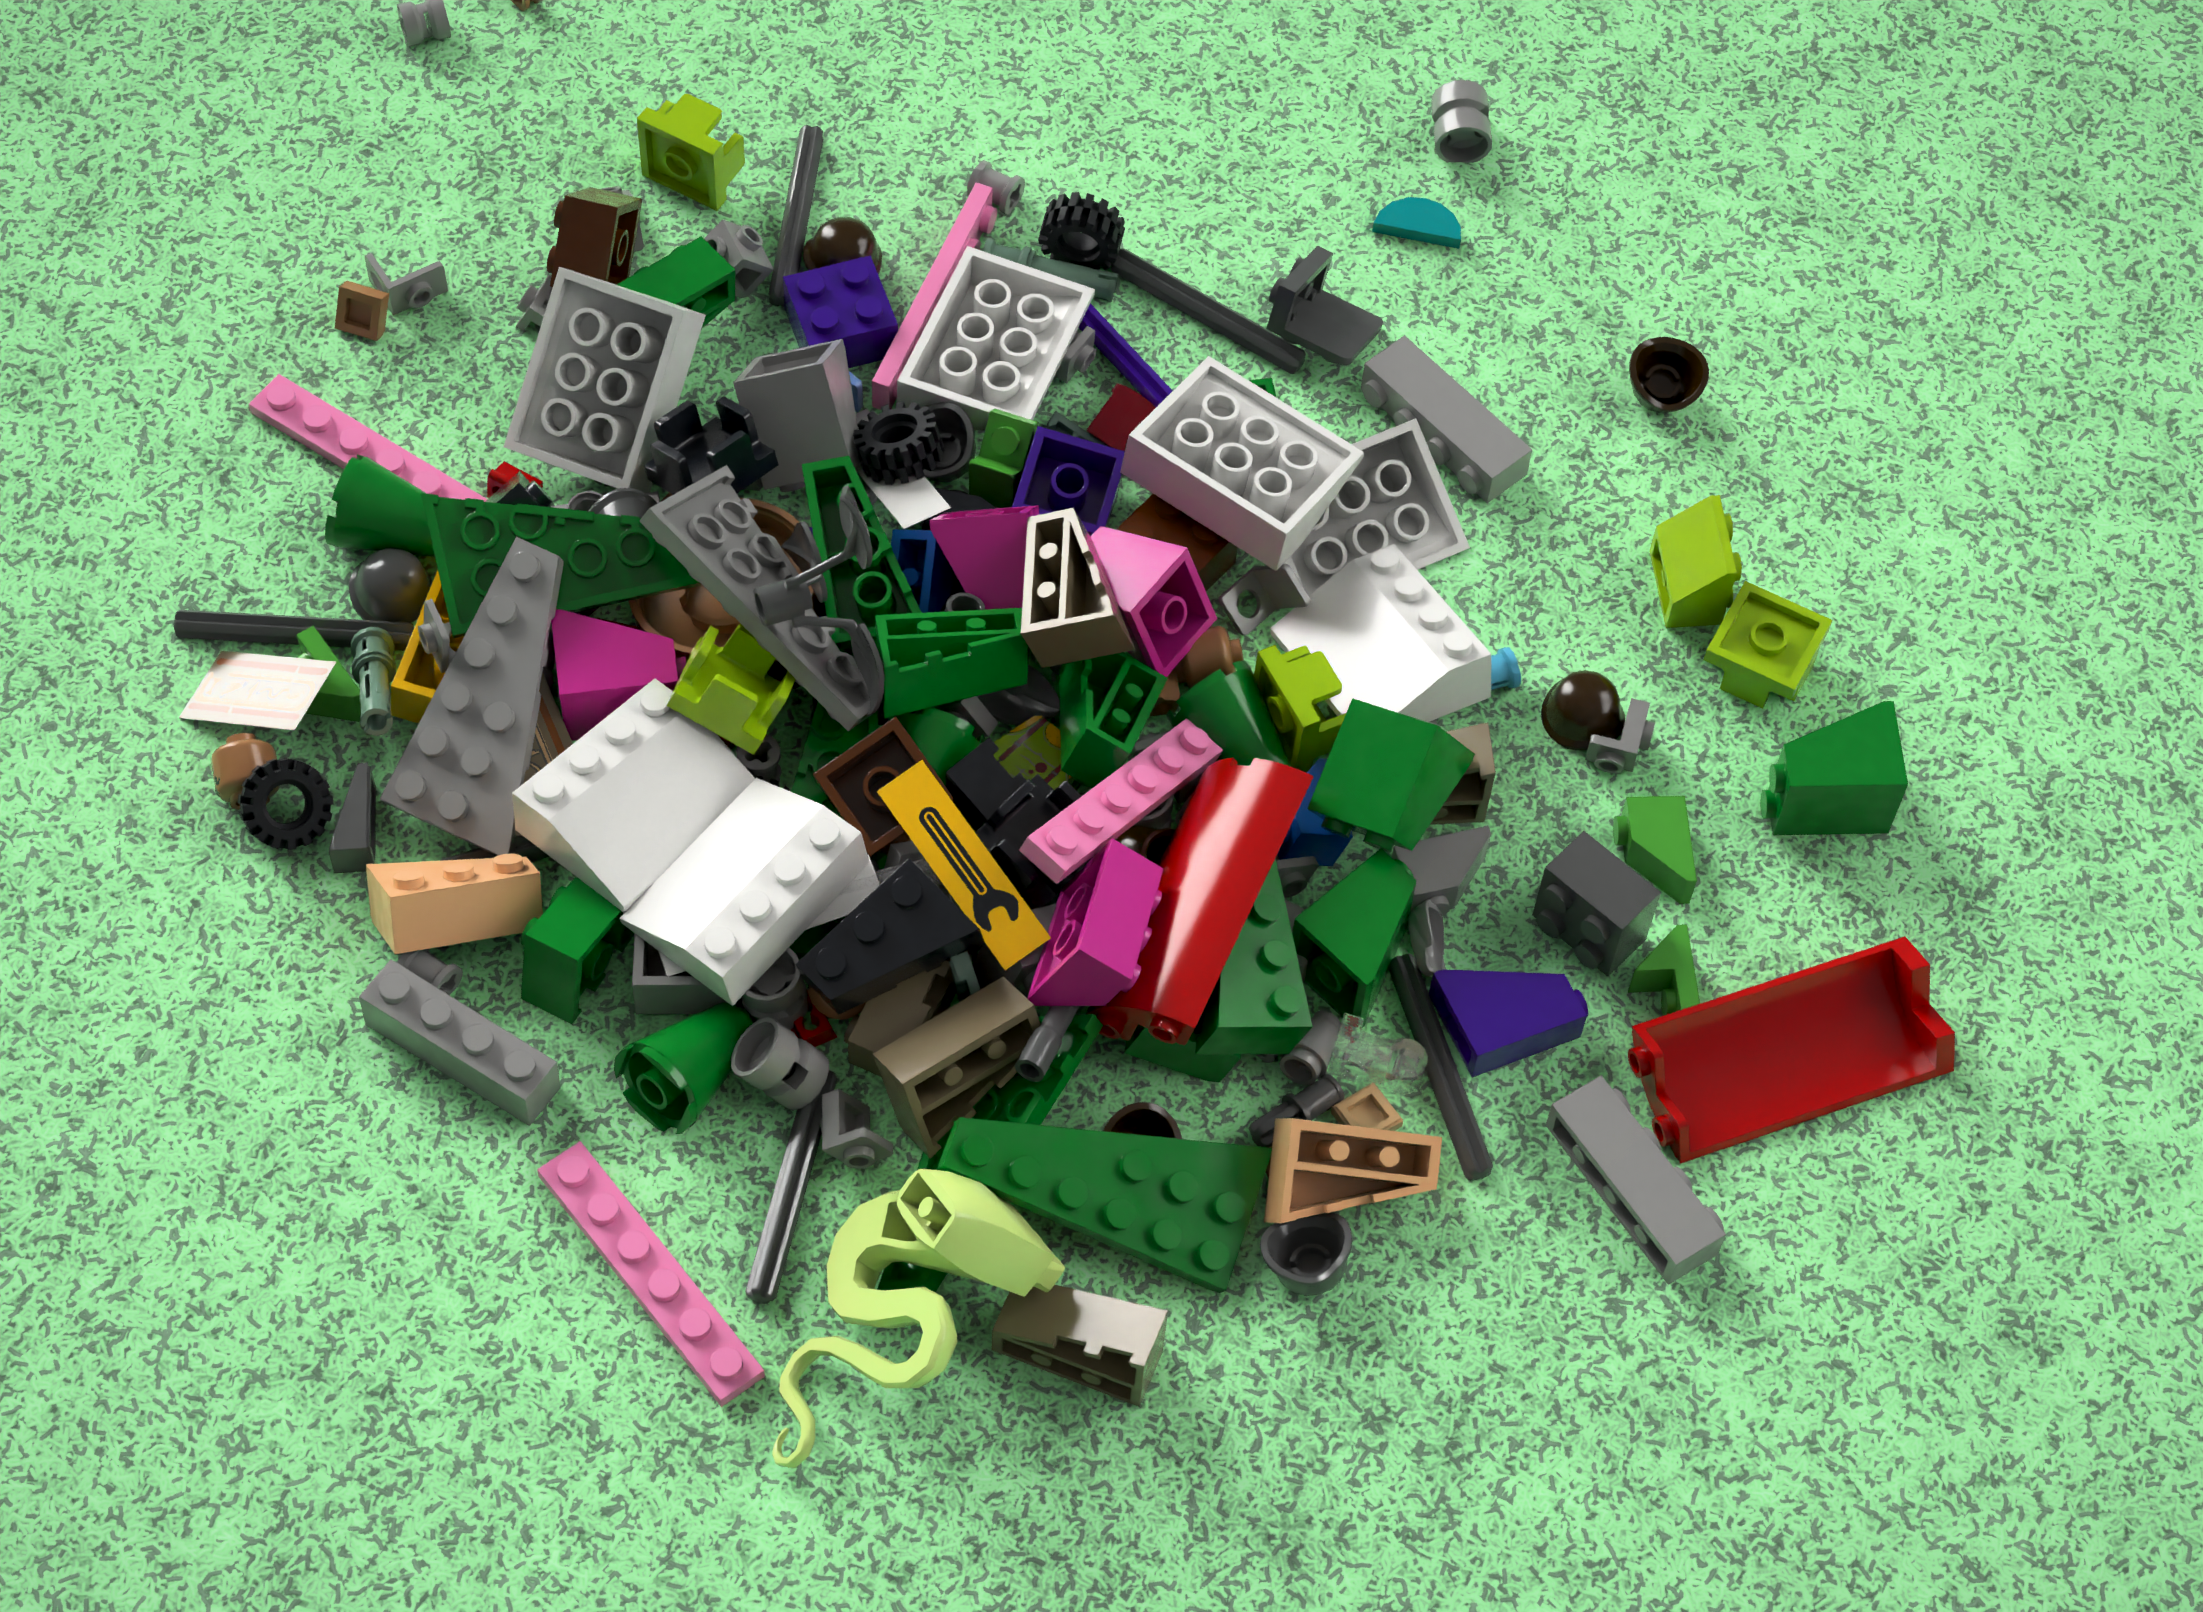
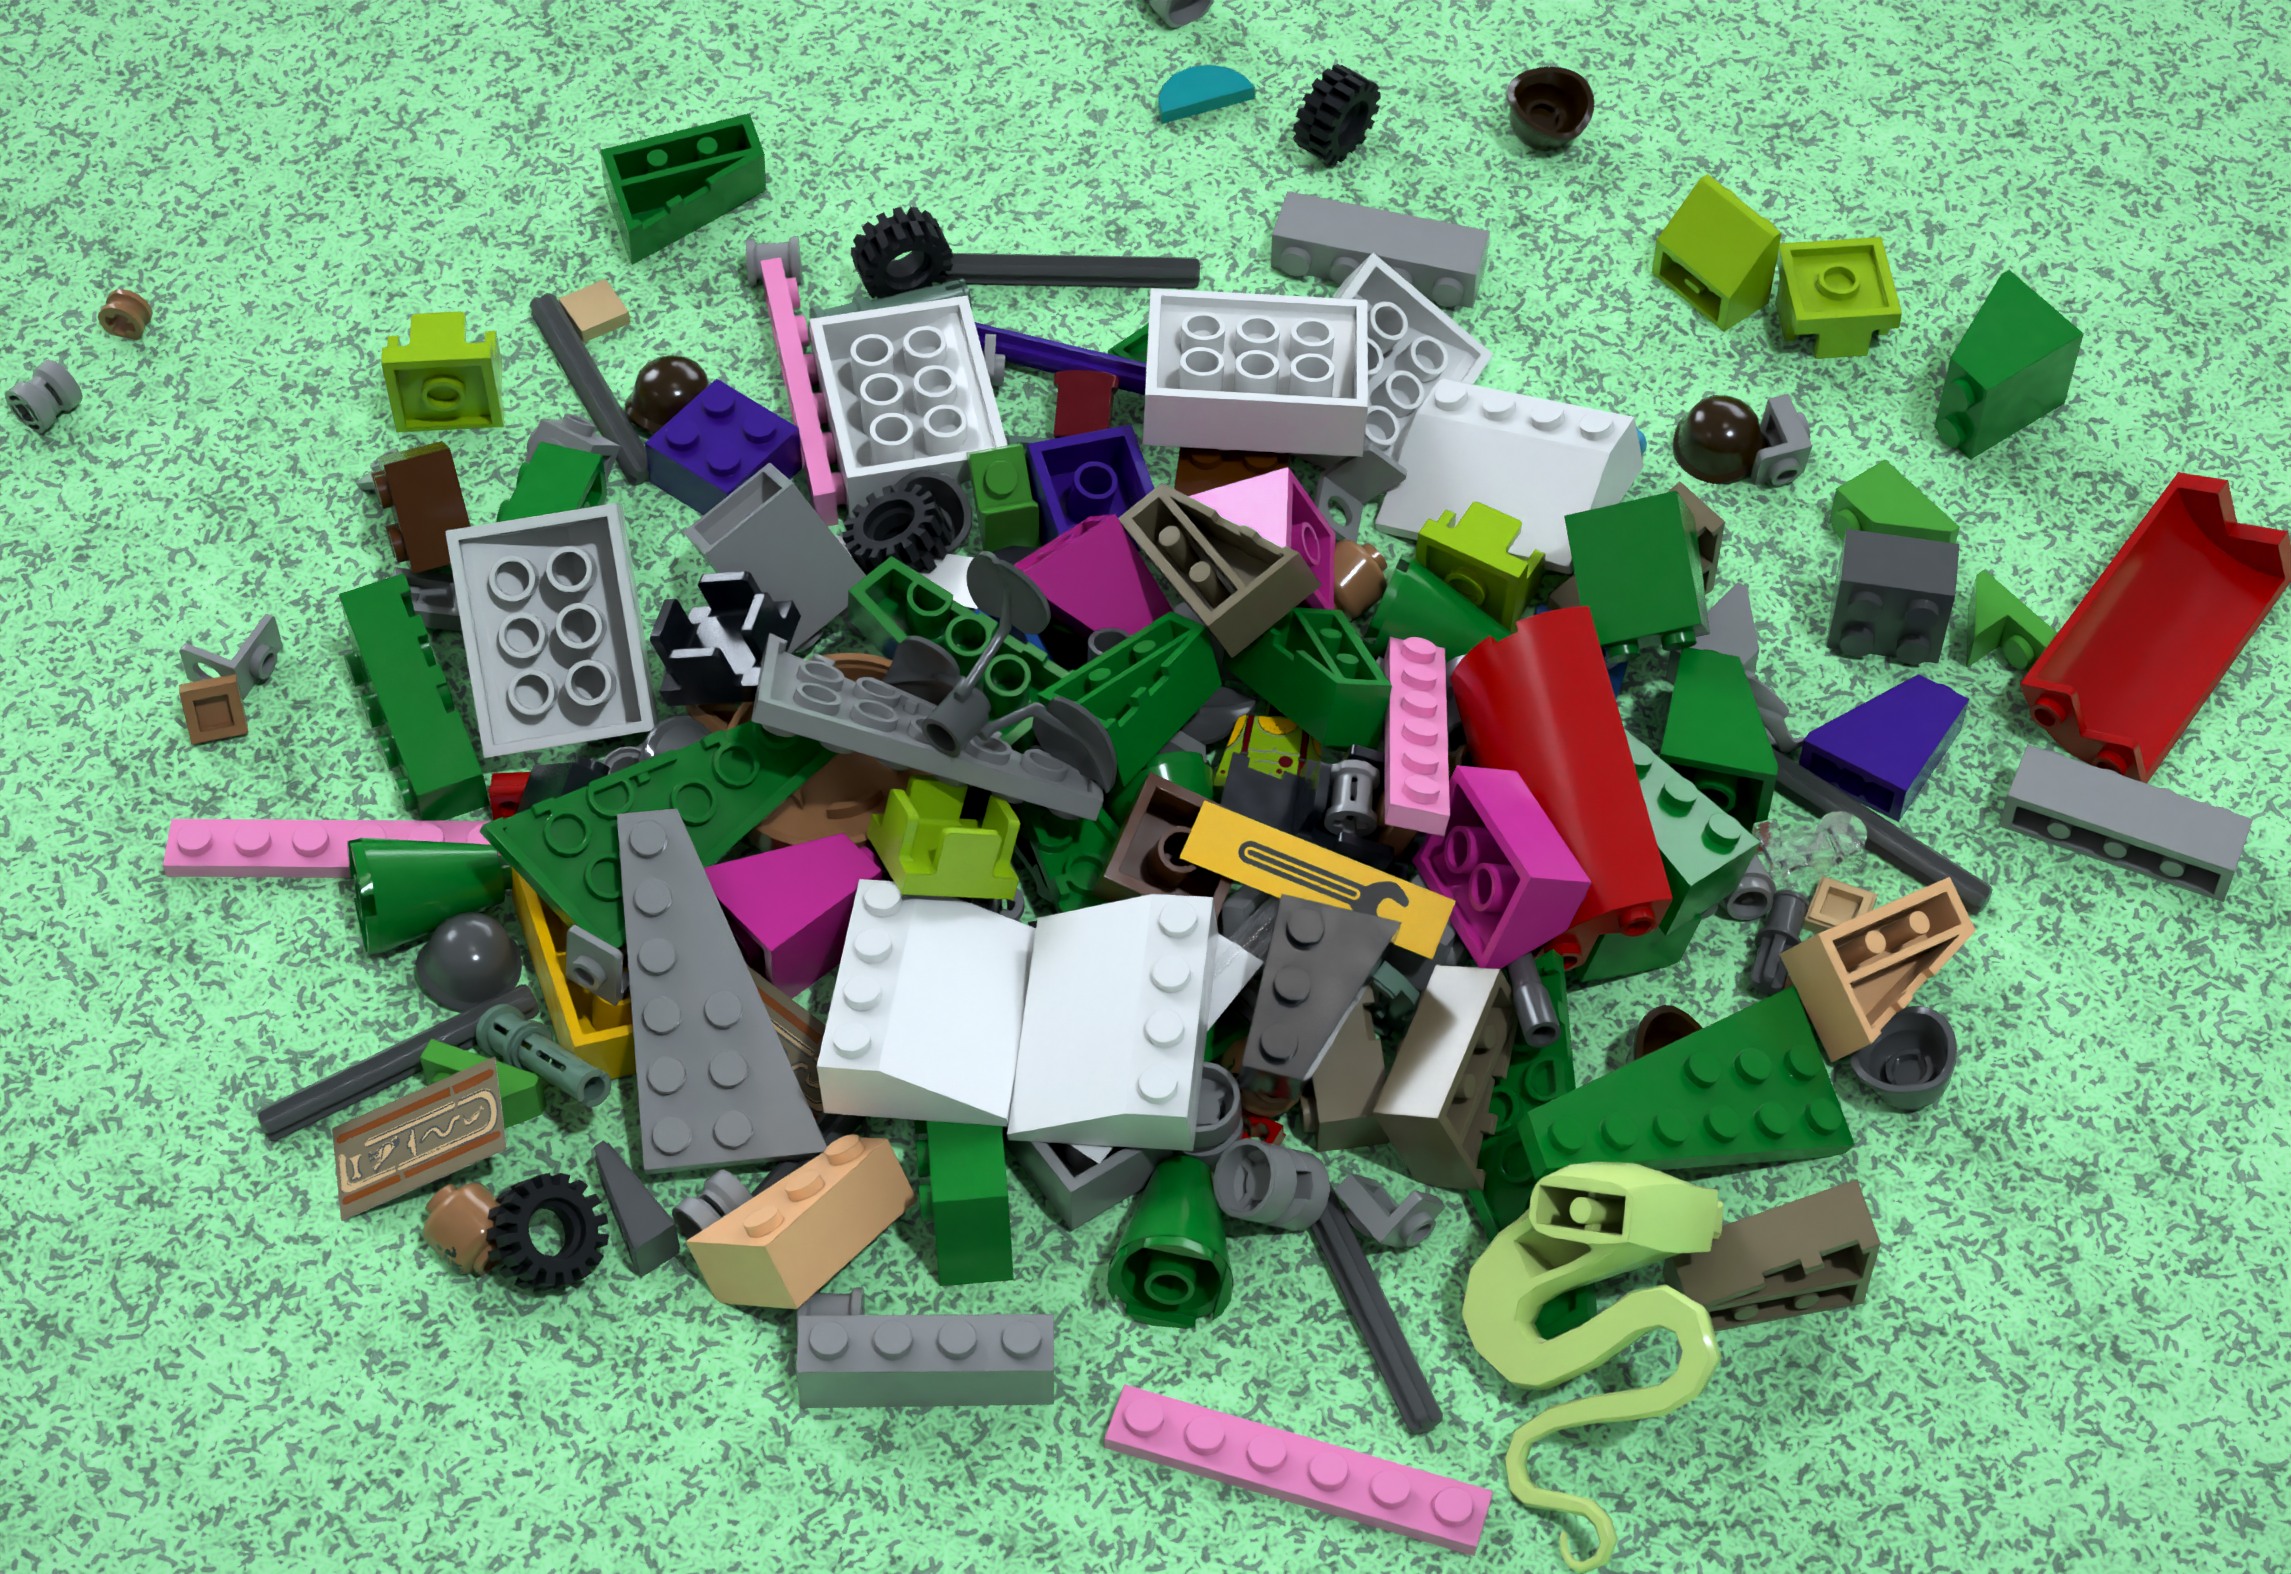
camera: 30 degrees left, 5 degrees down
(417, 846) = (719, 1197): none -> light grey wheel
(487, 378) = (410, 702): none -> green wedge
(844, 157) = (595, 310): none -> tan tile
(971, 91) = (681, 181): none -> green wedge
(1042, 809) = (1364, 818): none -> light grey bush
(1316, 318) = (1188, 221): dark grey bracket -> none
(1495, 294) = (1336, 114): none -> black tyre

